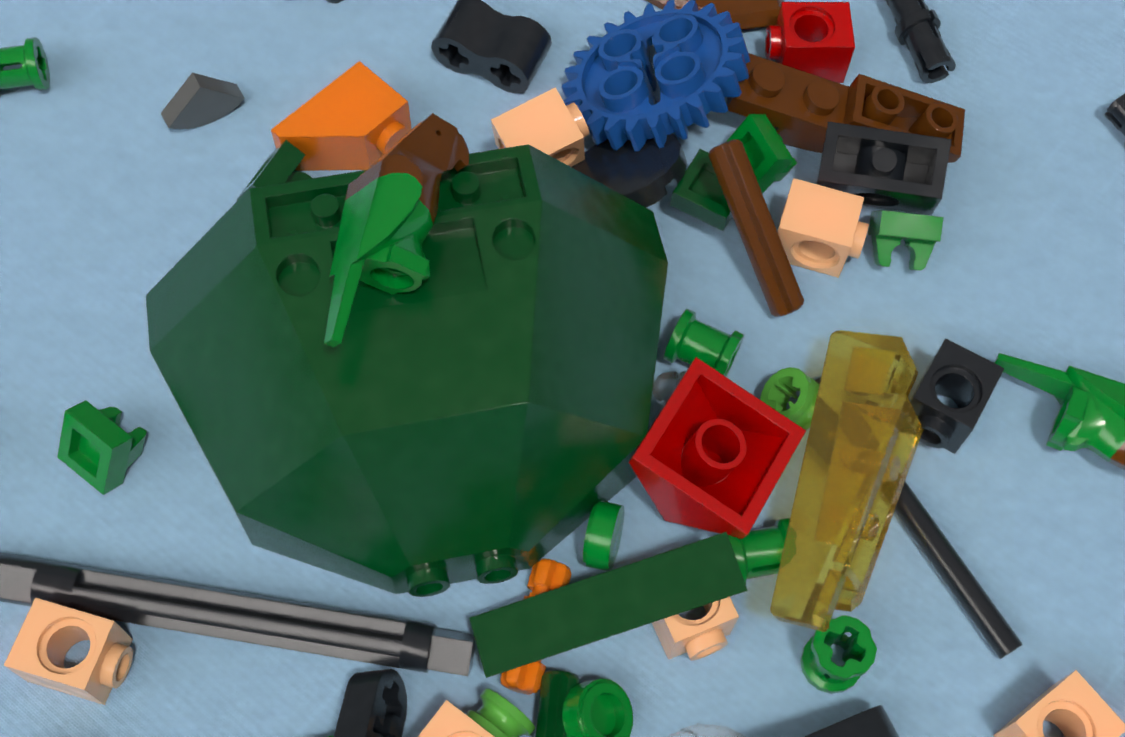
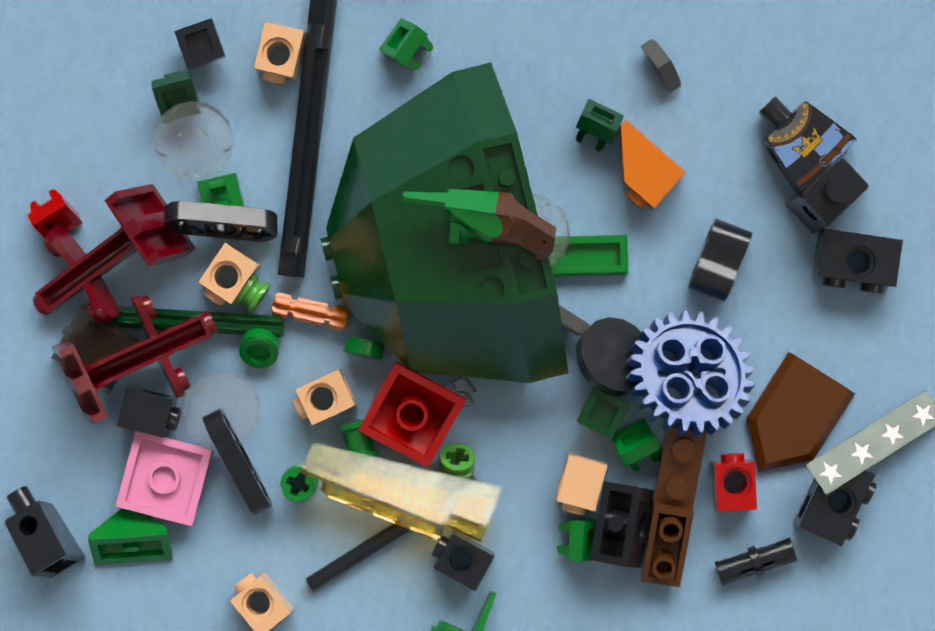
camera: 85 degrees right, 25 degrees up
(545, 125) = (630, 298): light nougat brick -> none
(607, 604) = (316, 351): dark green sticker -> none
(699, 340) = (491, 407): green bush -> none
(756, 228) = (570, 440): reddish brown axle -> none

